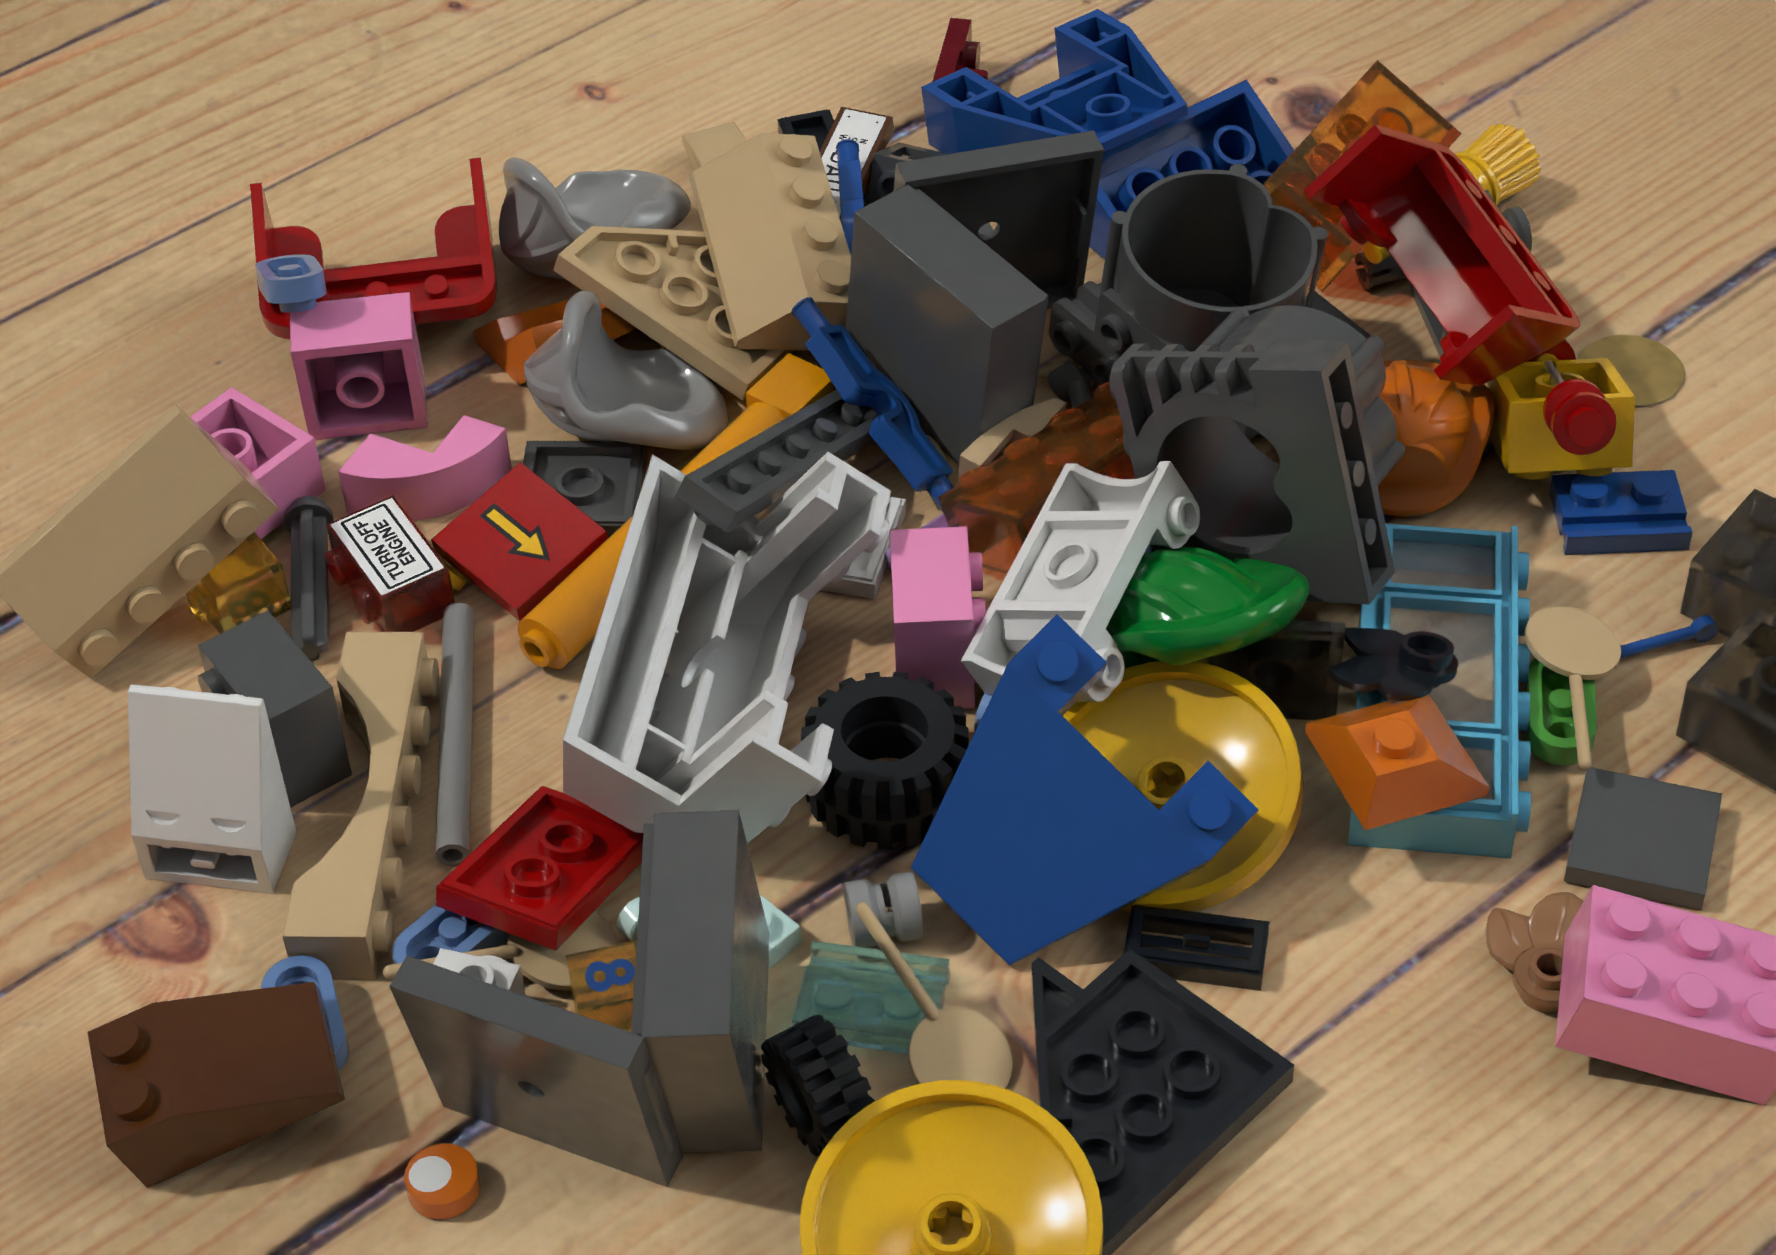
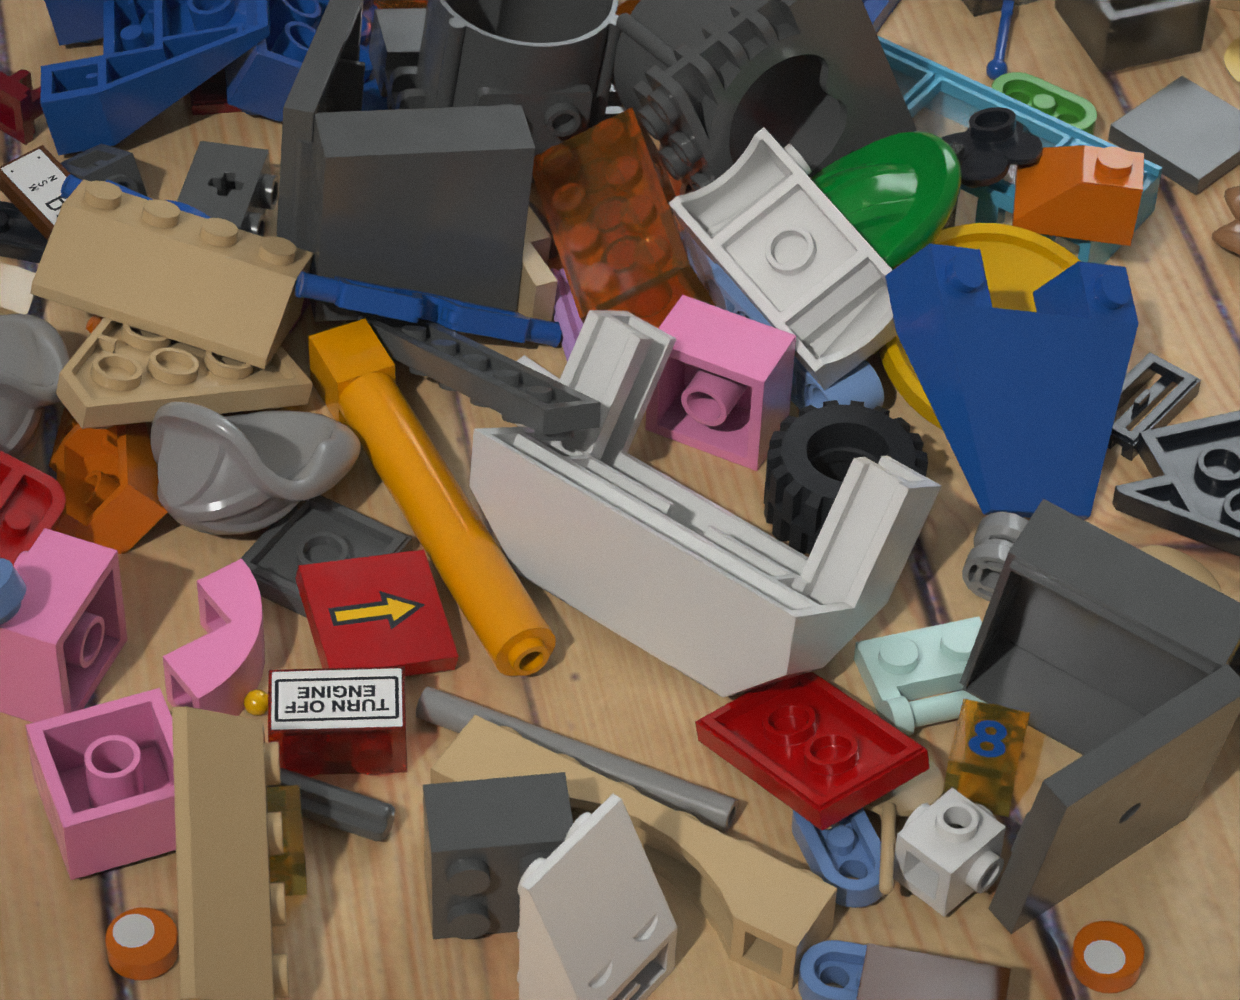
camera: 65 degrees left, 0 degrees up
(1577, 648) = (1013, 69): tan piece -> none

